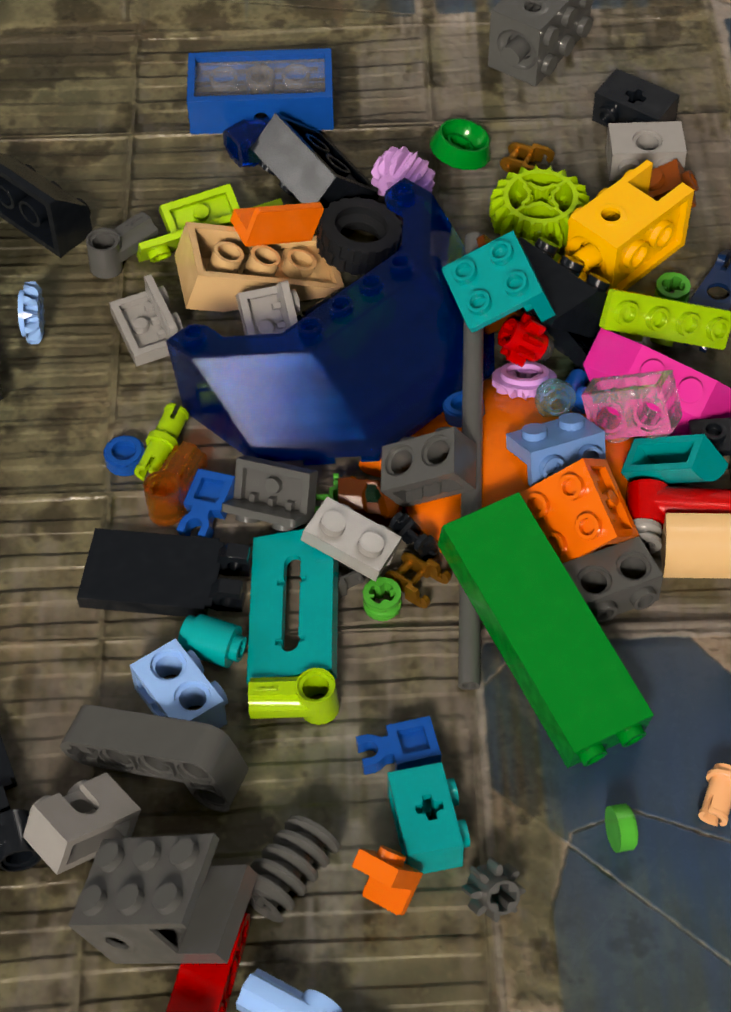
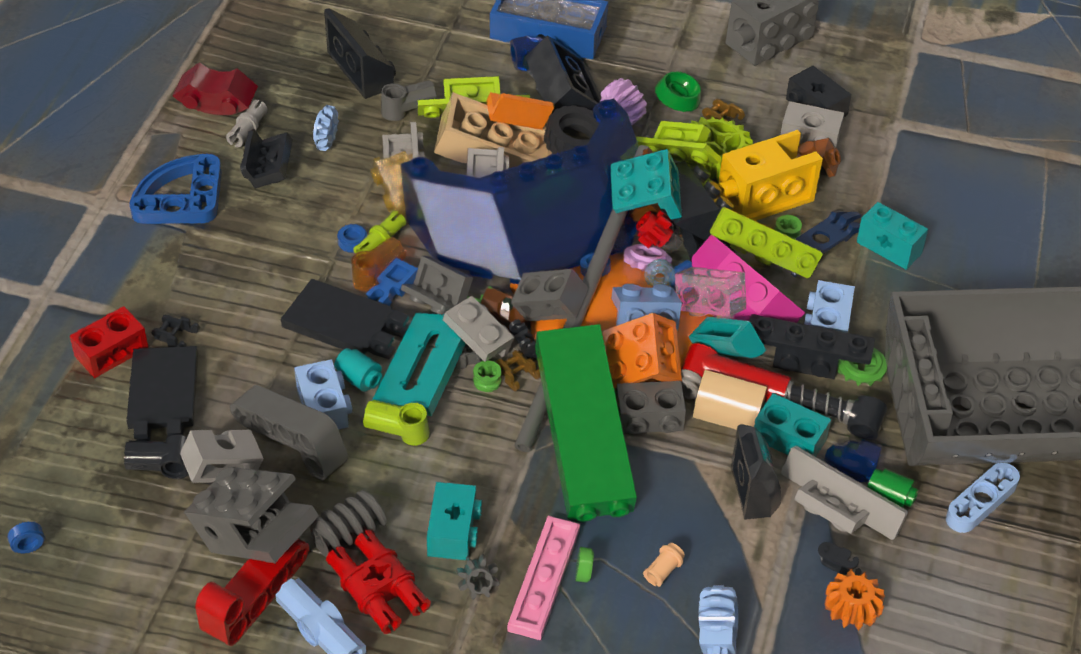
camera: 15 degrees right, 5 degrees down
(149, 358) = (388, 175): none -> clear yellow bracket
(362, 959) = (378, 581): none -> red pin
(390, 878) = (412, 549): orange bracket -> none
(405, 745) = (460, 470): blue plate -> none
(505, 209) = (682, 142): none -> lime bracket
(573, 861) = (543, 578): none -> bright pink tile

